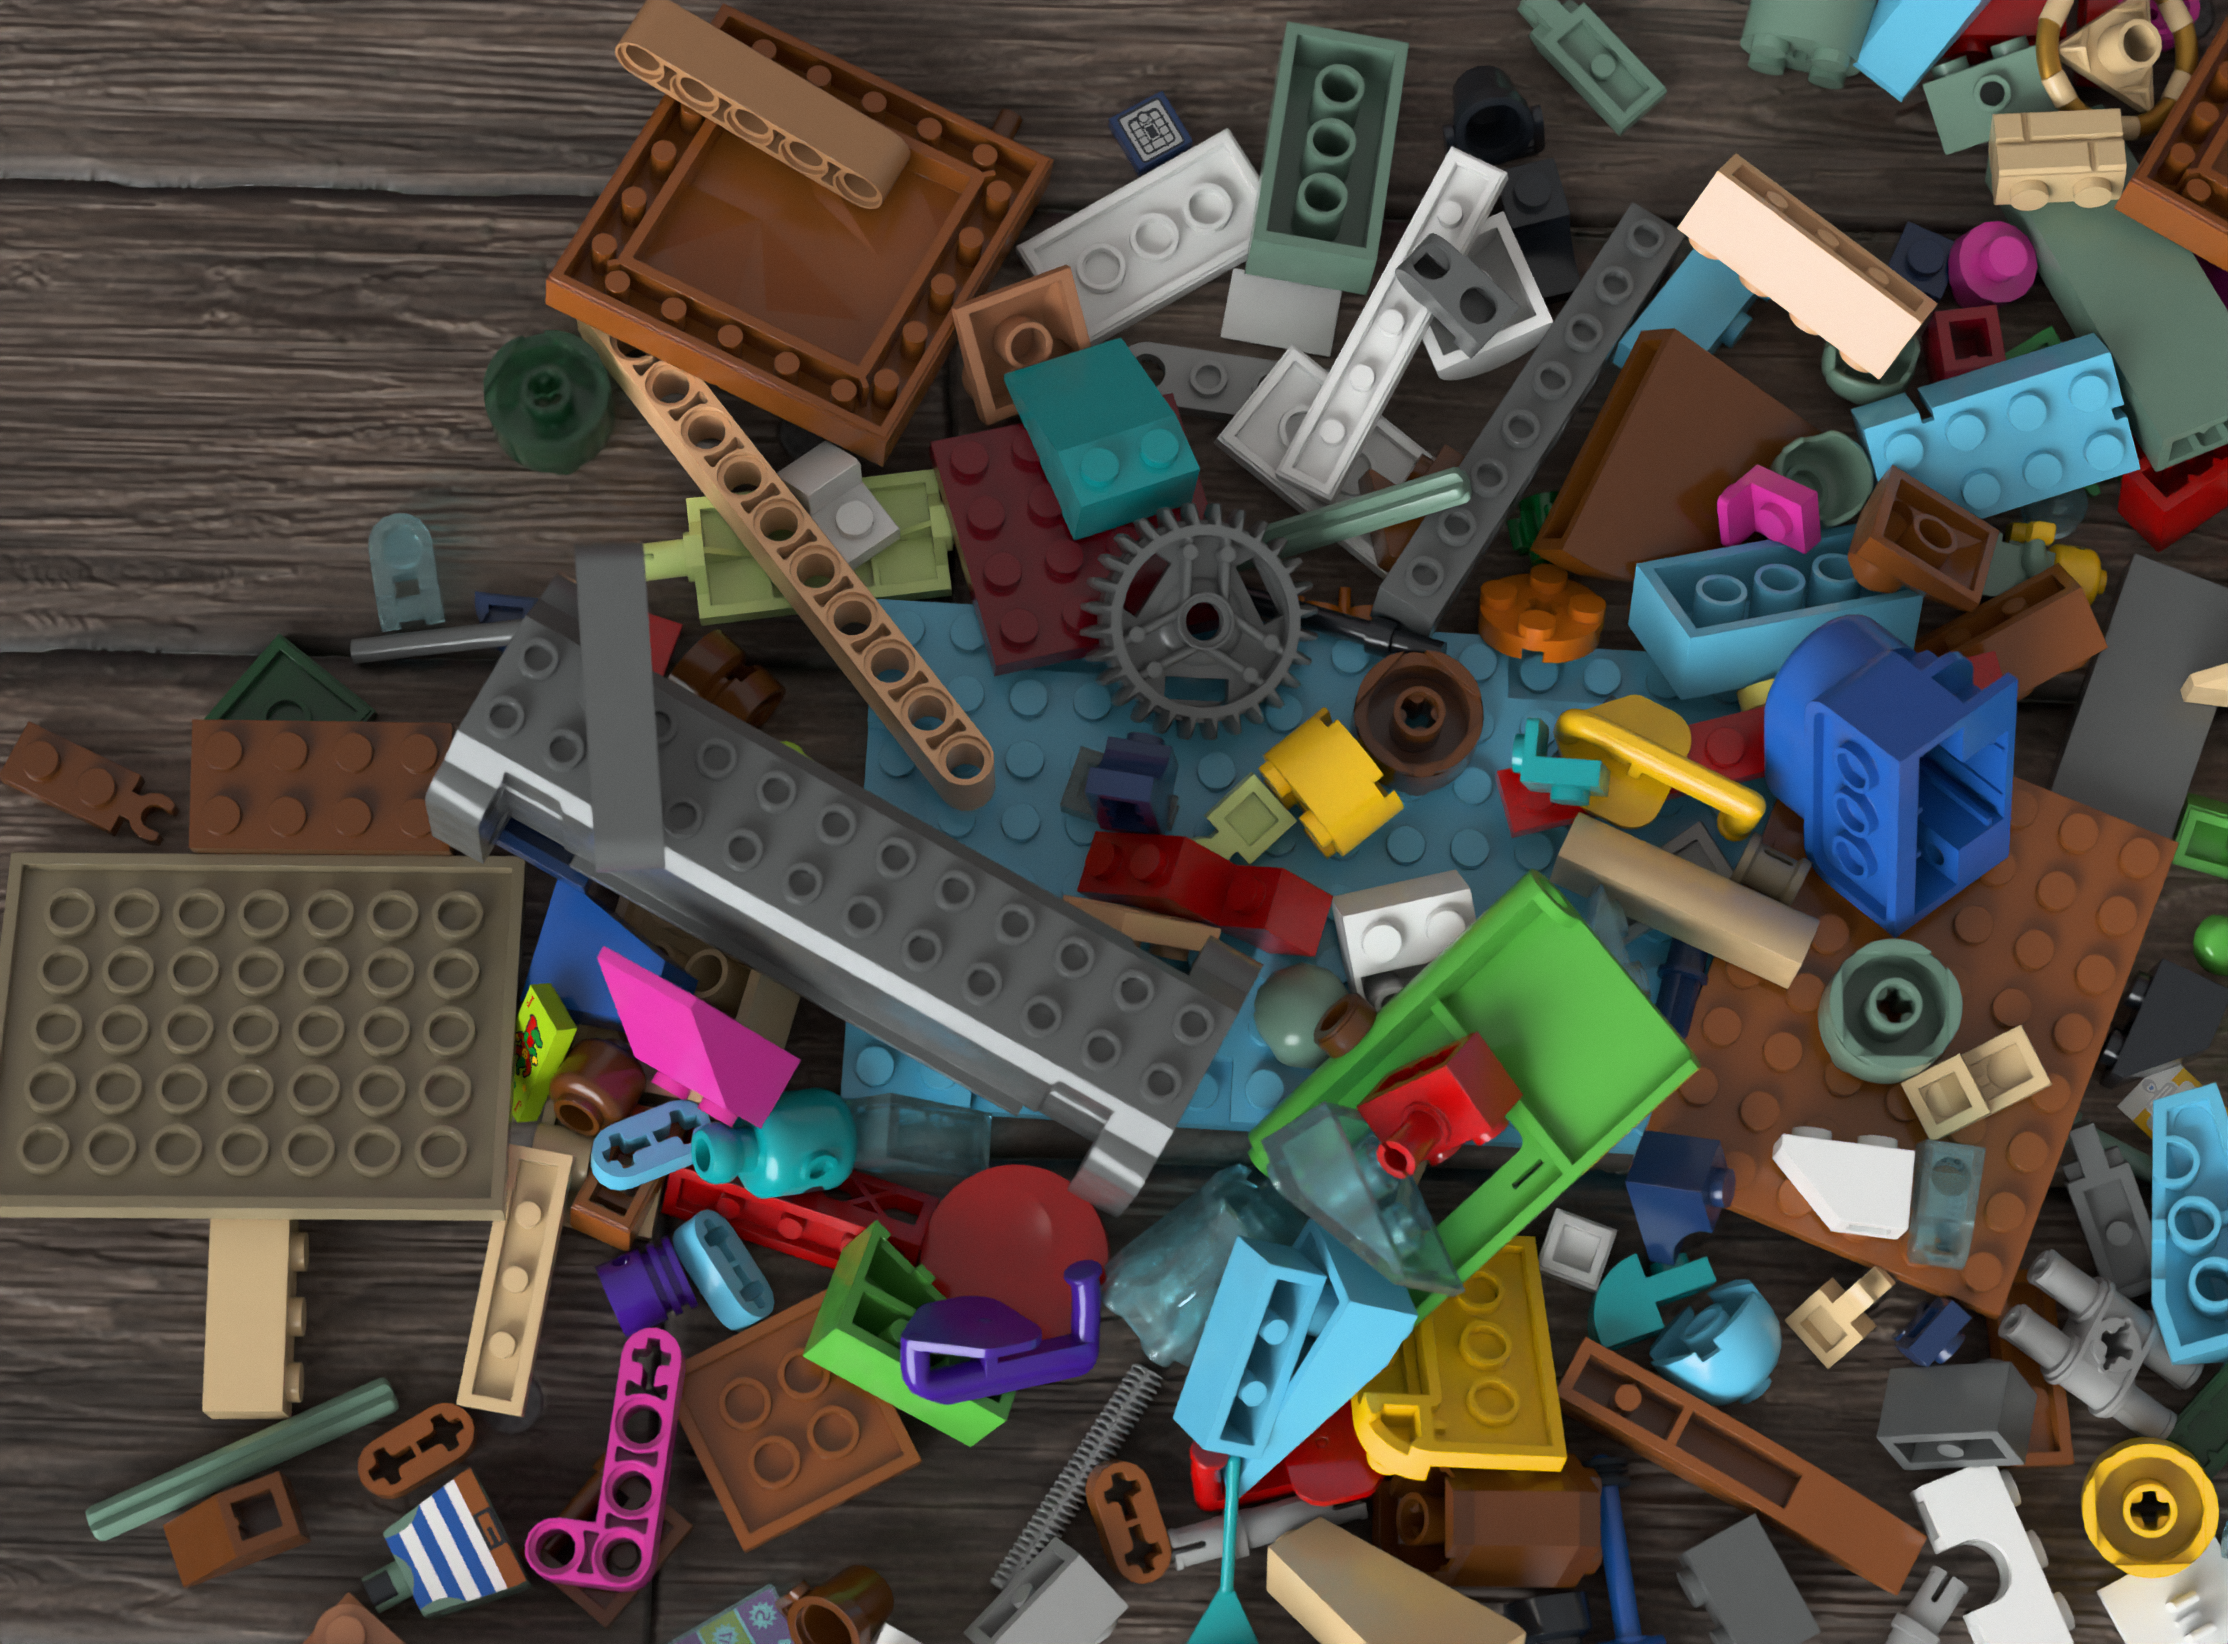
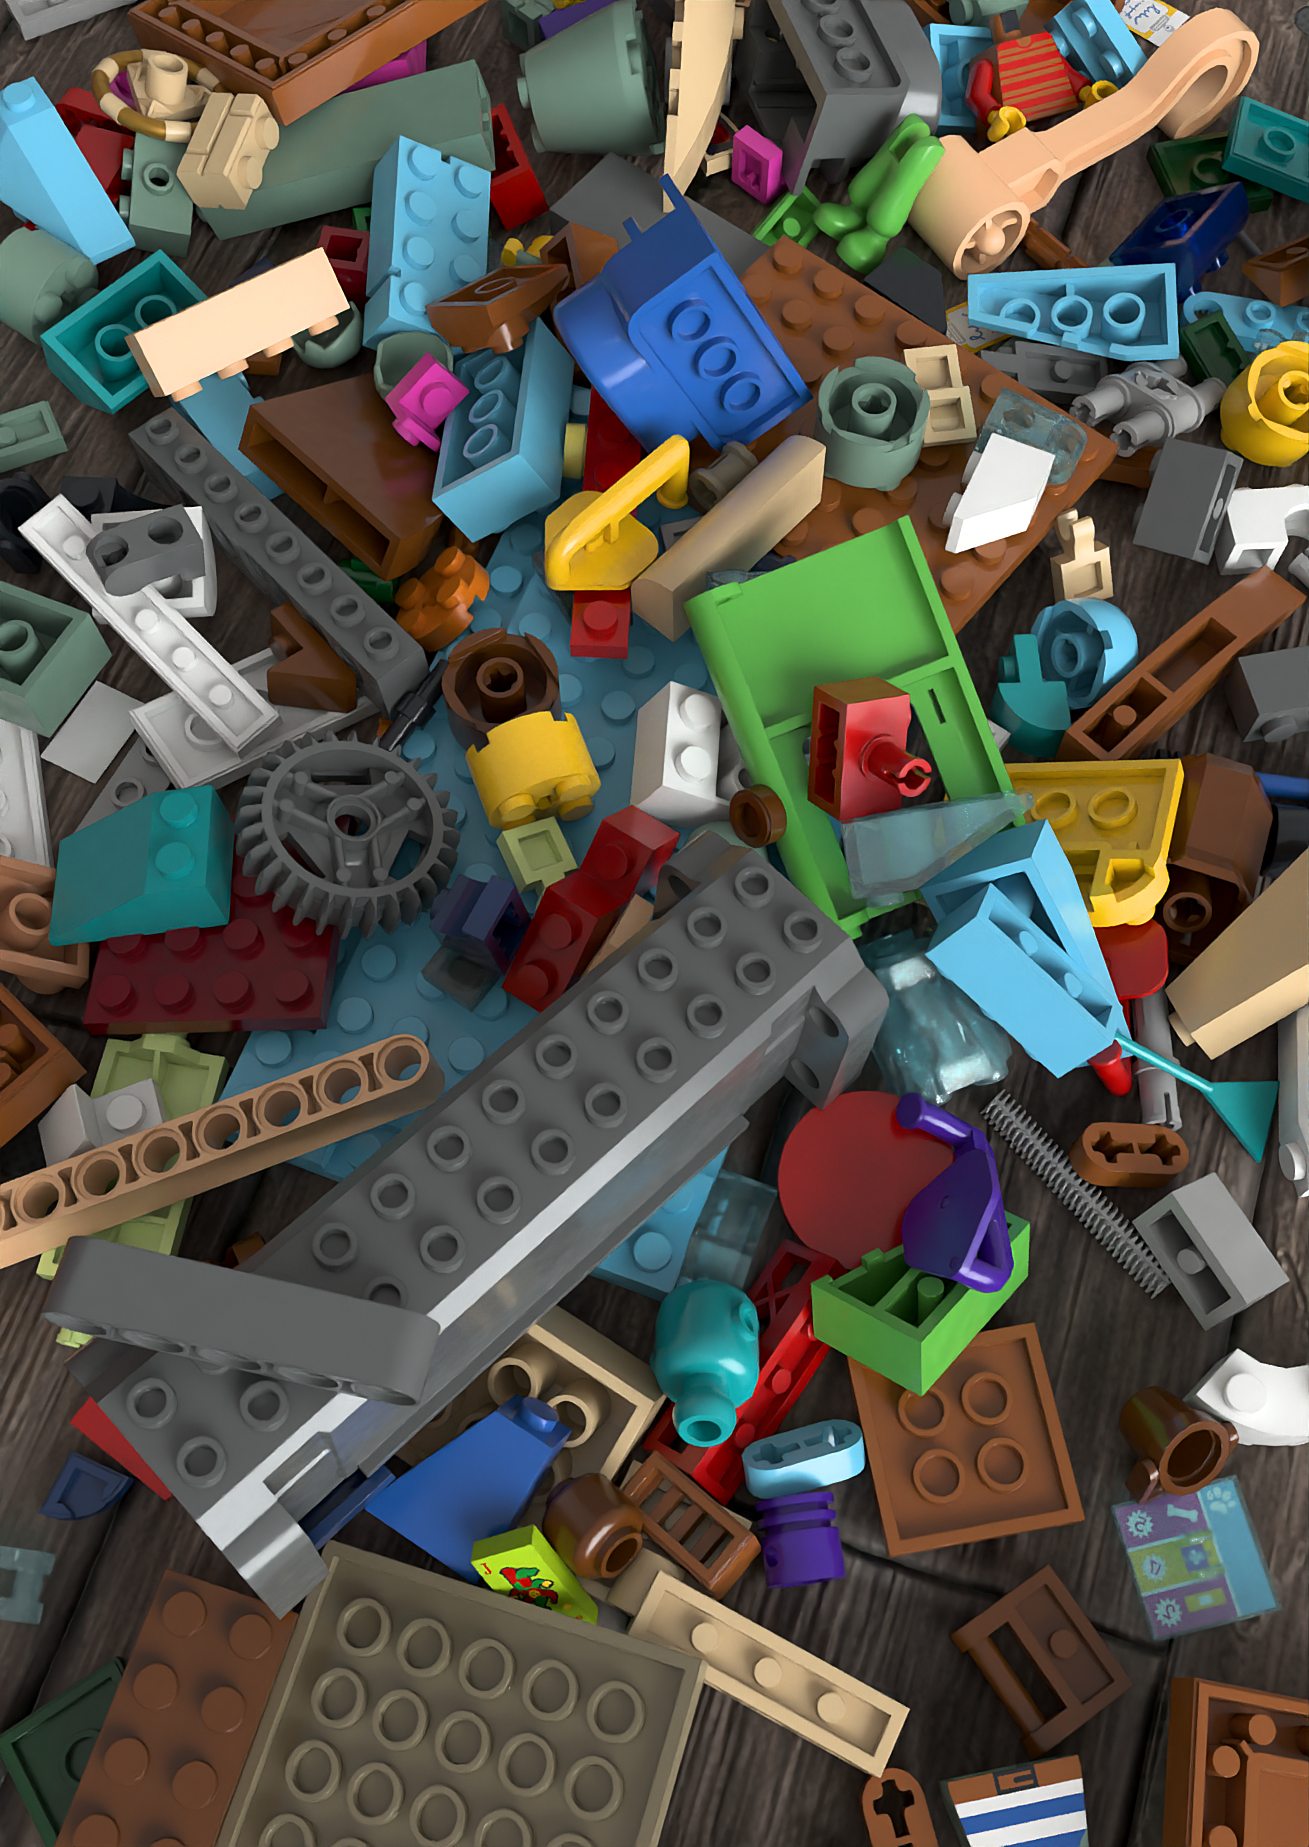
camera: 70 degrees left, 10 degrees down
(433, 641) = (74, 1560): dark grey bar -> none
(623, 1461) = (978, 1611): dark pink beam -> none
(646, 1131) = (654, 1489): medium azure beam -> none
(696, 1045) = (597, 1398): dark pink slope -> none
(1369, 512) = (307, 660): sand green axle -> none
(1564, 778) = (604, 576): teal bracket -> none
(1677, 1190) = (977, 616): dark blue arch -> none
(1787, 137) = (89, 344): none -> teal slope
(1932, 1332) = (1115, 499): dark blue plate -> none
(1991, 265) = (285, 233): dark pink piece -> none

